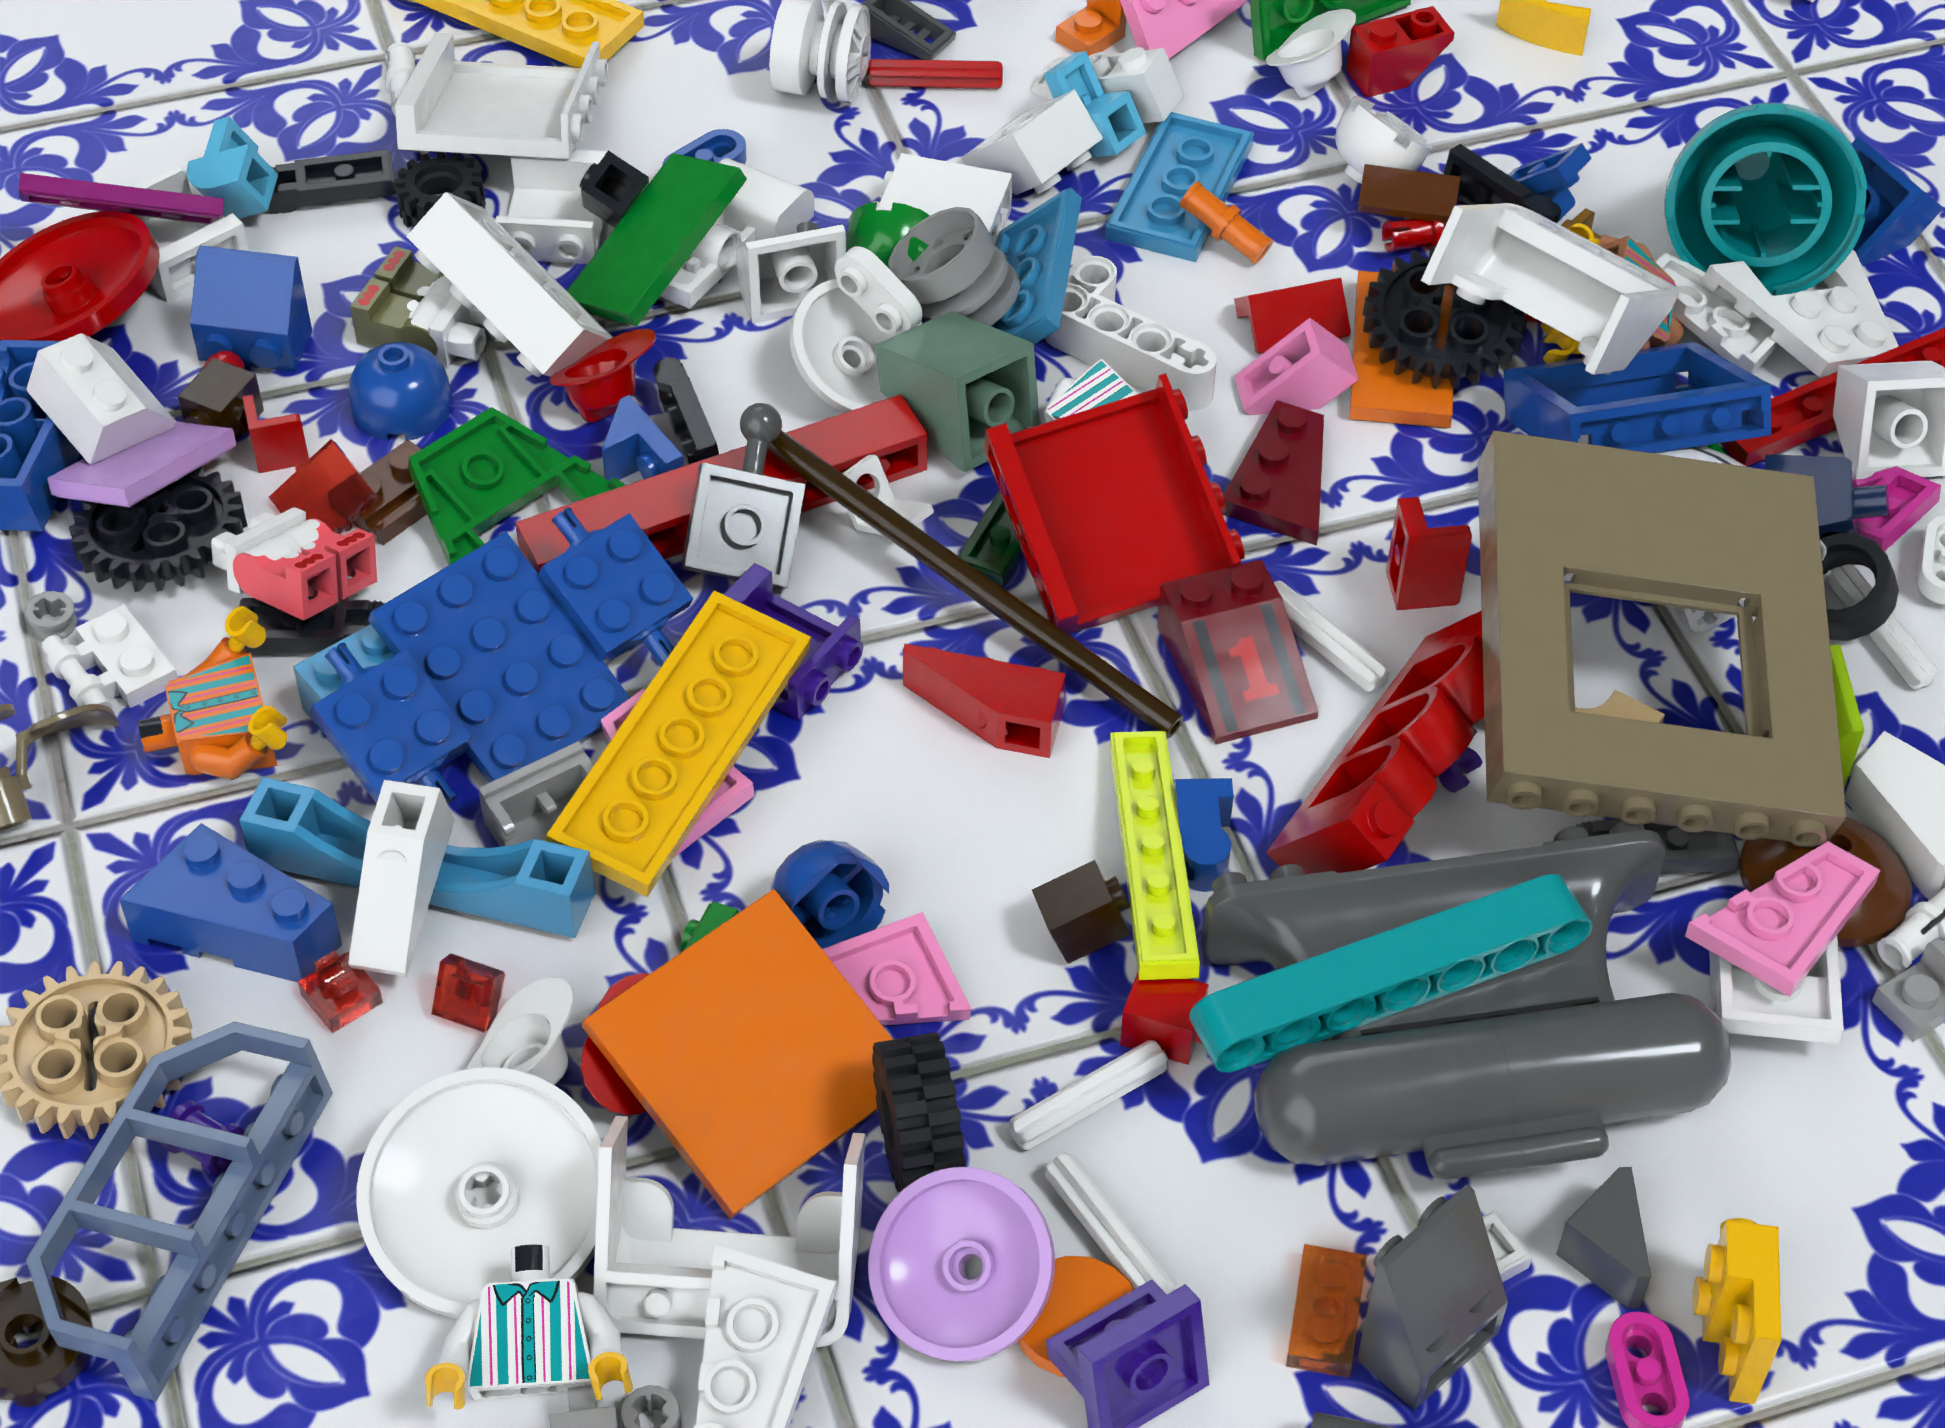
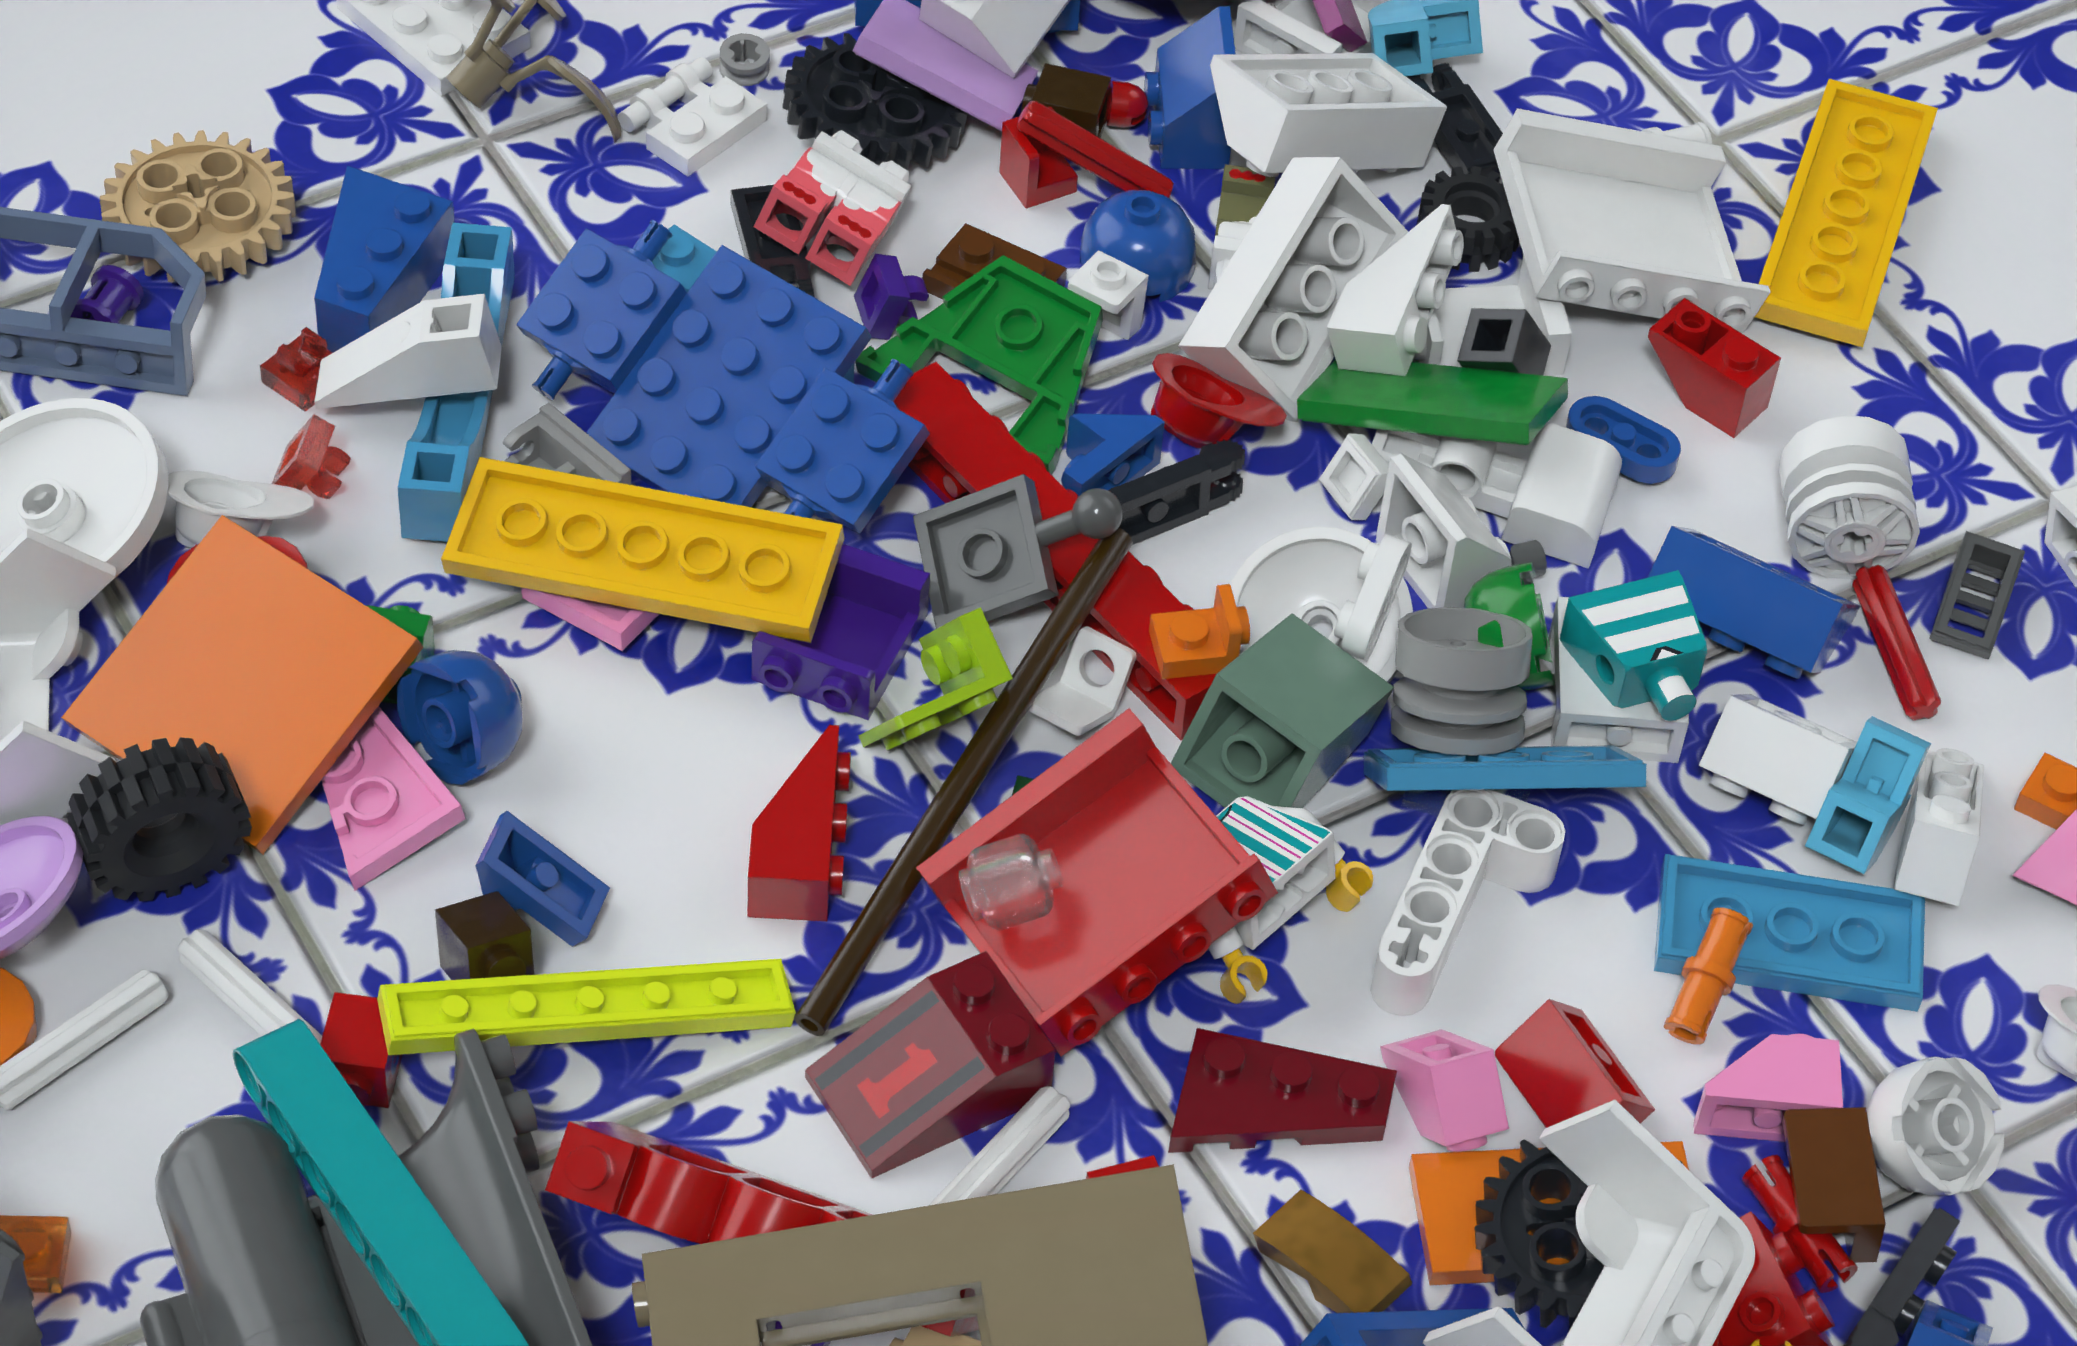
camera: 75 degrees right, 0 degrees up
(220, 710) = (629, 187): torso -> none
(297, 387) = (1090, 151): none -> red axle
(327, 489) = (956, 217): clear red piece -> none
(329, 226) = (1323, 108): none -> white slope
(404, 556) = (886, 296): none -> dark purple tile
(460, 402) = (1116, 289): none -> white bracket
(566, 238) = (1390, 302): none -> white slope
(660, 90) = (1714, 367): none -> red slope
(703, 308) = (1356, 476): none -> white tile
(878, 402) = (1200, 639): none -> orange bracket
(881, 567) = (965, 665): none -> lime bracket
(890, 124) = (1756, 602): none -> blue slope
(953, 166) = (1639, 643): none -> teal torso
(1009, 872) = (540, 880): none -> blue slope
(1097, 557) = (1010, 881): none -> clear head
(1202, 811) = (639, 1060): blue leg -> none
(1325, 212) = (1767, 1081): none -> bright pink slope
(1435, 461) = (1334, 1255): none -> pearl gold slope

